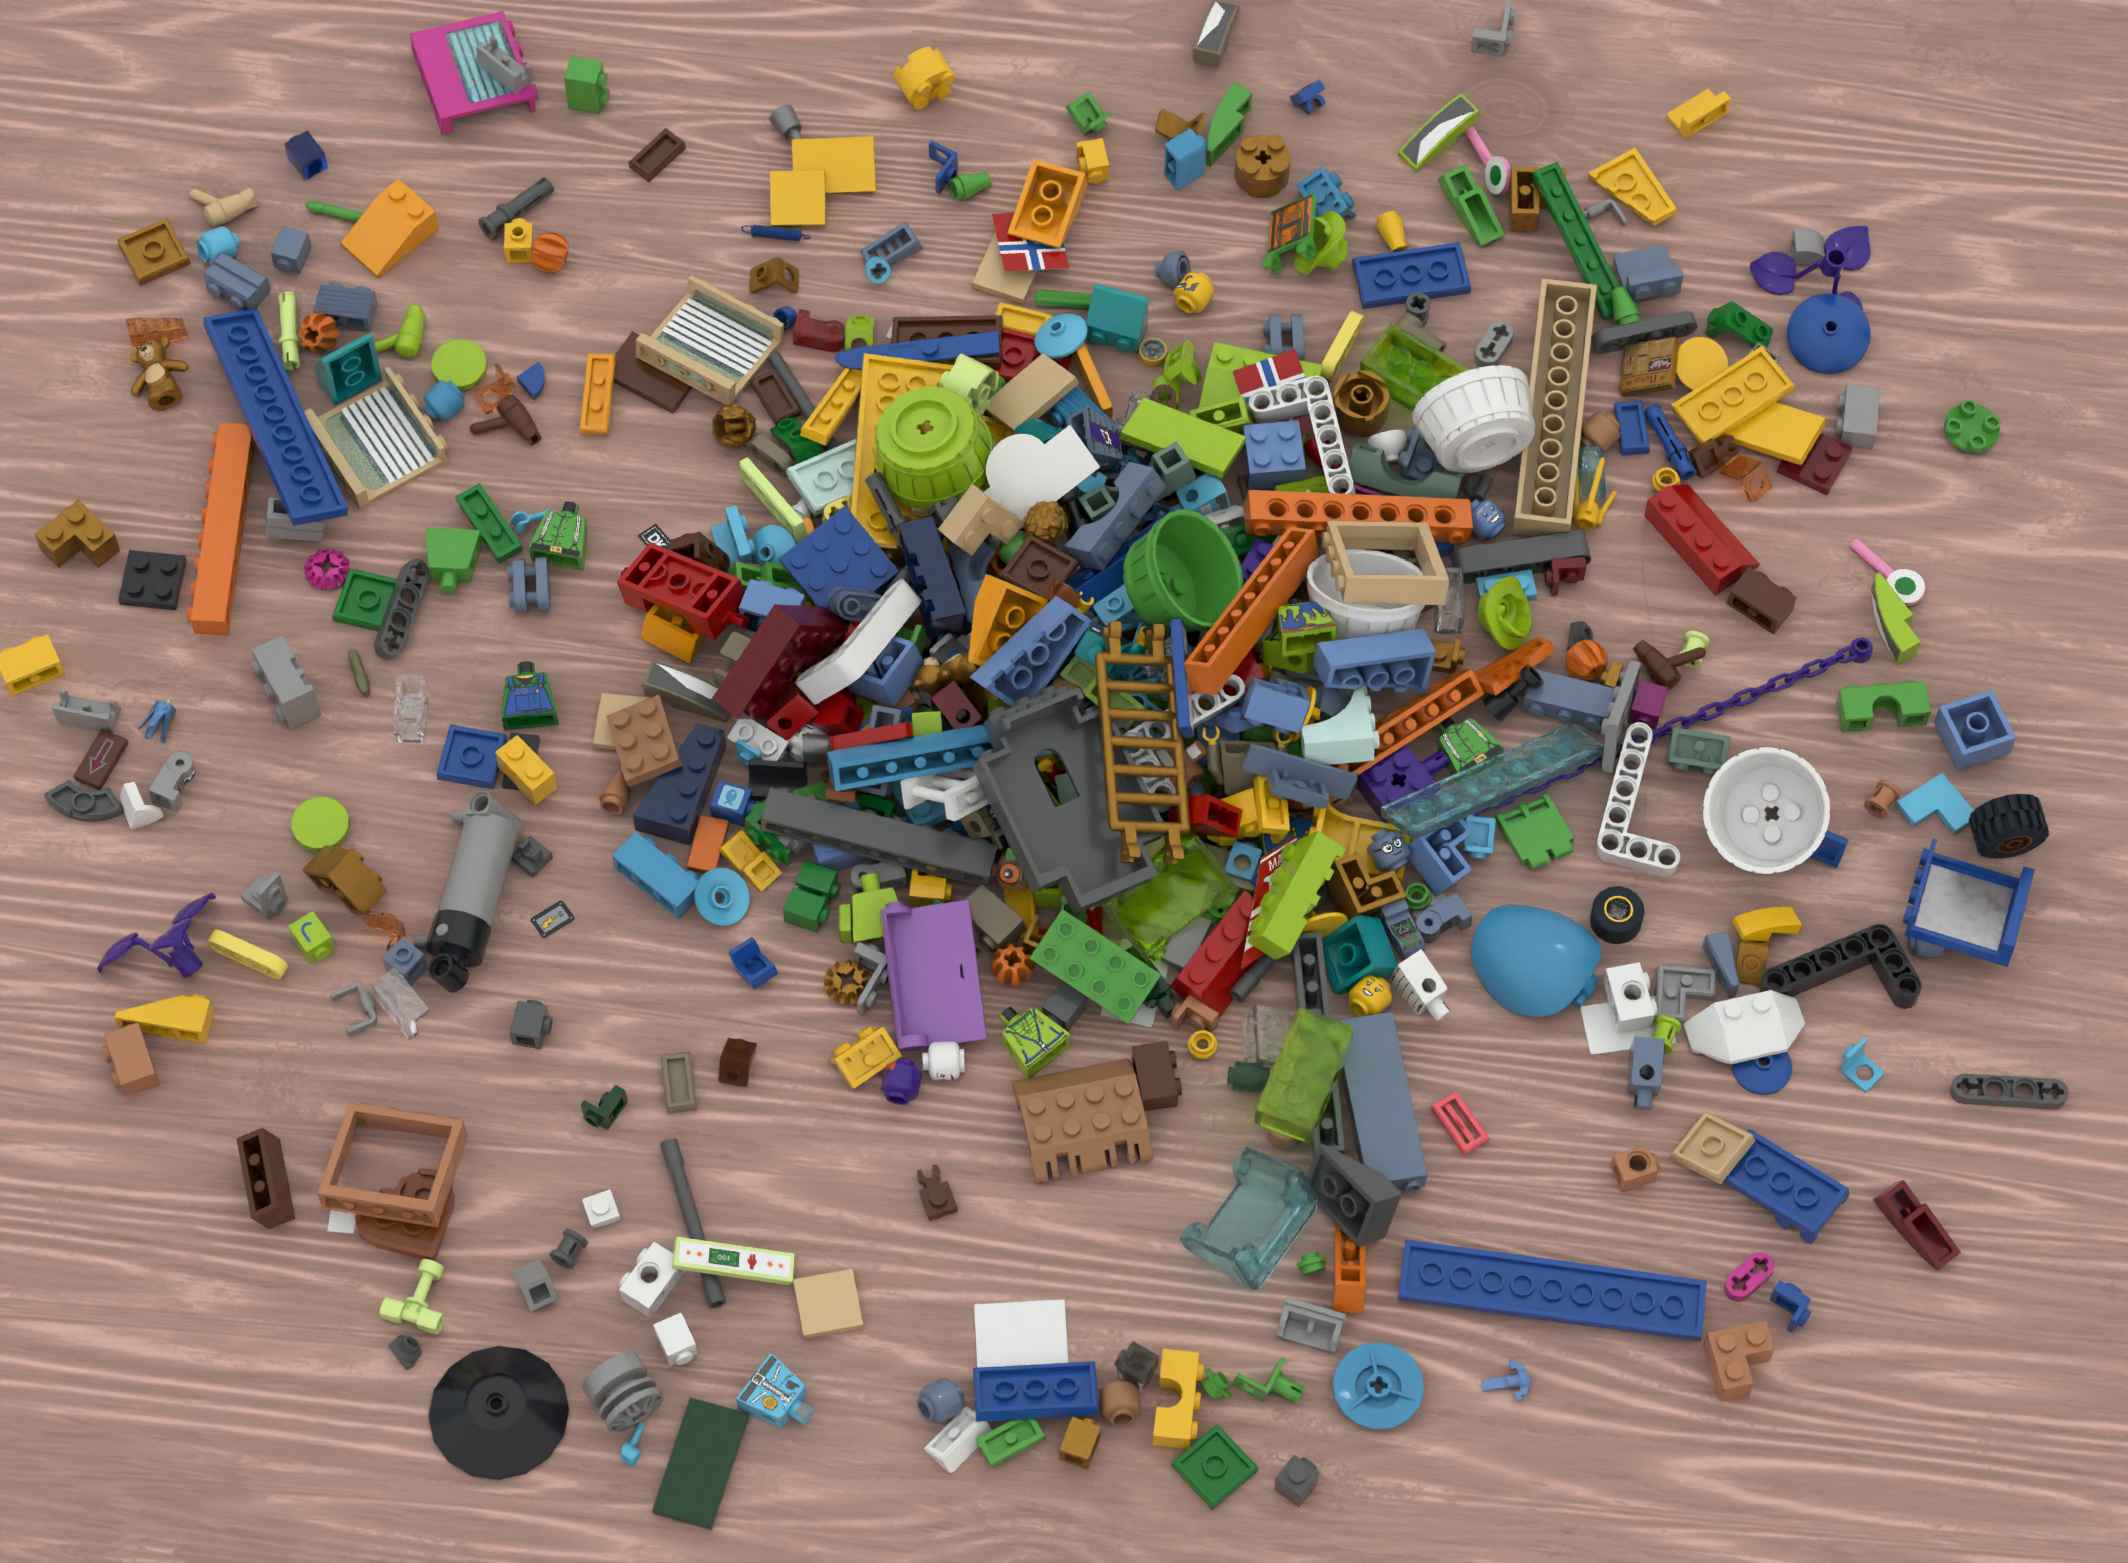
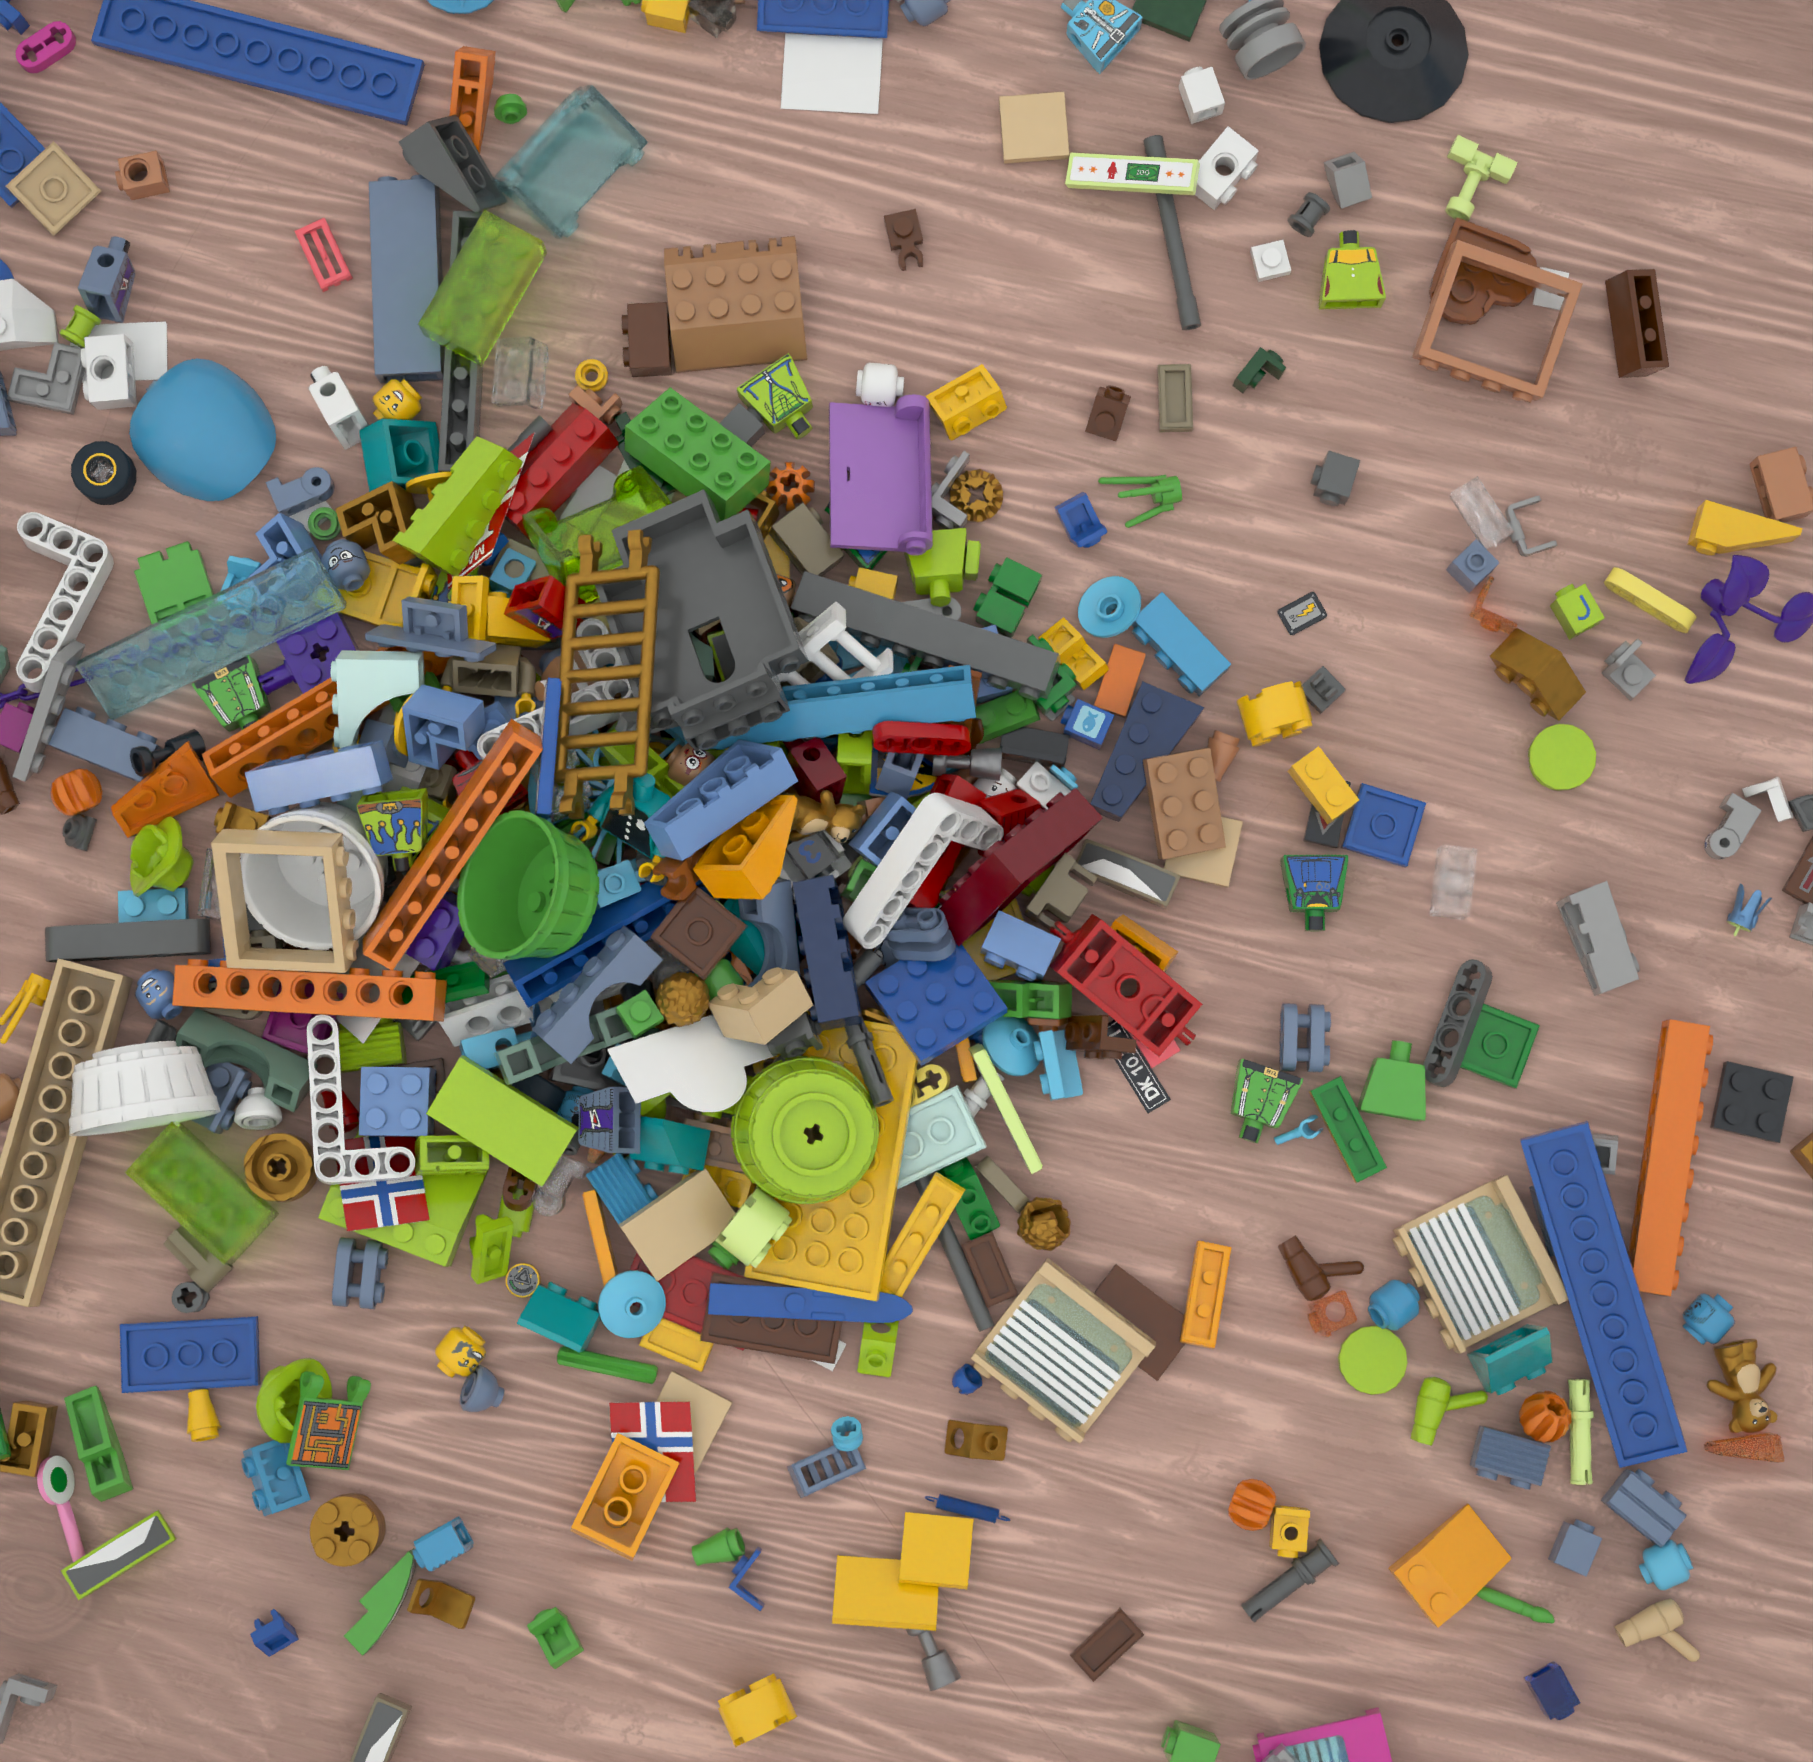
camera: 170 degrees left, 20 degrees up
(153, 251) = (1745, 1572): pearl gold tile -> none
(187, 416) = (1708, 1318): none -> dark azure head
(334, 577) = (1531, 1103): dark pink gear -> none
(361, 678) = (1508, 943): olive piece -> none
(406, 1350) = (1489, 124): dark grey plate -> none
(471, 890) = (1393, 639): light grey piece -> none
(527, 1197) = (1351, 276): none -> lime torso
(532, 380) = (1282, 1327): blue tile -> none
(571, 821) = (1275, 712): none -> yellow brick
(681, 998) = (1162, 489): none -> bright green plant
(817, 333) = (917, 1345): clear red leg -> none
(901, 1081) = (929, 365): dark purple head -> none
(1079, 507) = (639, 1014): none -> bright green plate
(1093, 160) = (558, 1563): yellow brick -> none
(1248, 1077) = (546, 326): clear green brick -> none
(1310, 1325) = (521, 43): light grey hinge -> none
(1342, 345) = (291, 1258): light yellow beam -> none
(1401, 929) = (345, 477): sand blue leg -> none
(1488, 342) = (100, 1236): light grey beam -> none
(1566, 570) = (76, 915): dark red bracket -> none
(1588, 462) = (20, 1045): clear light blue hinge -> none
(1611, 677) = (52, 765): pearl gold plate -> none

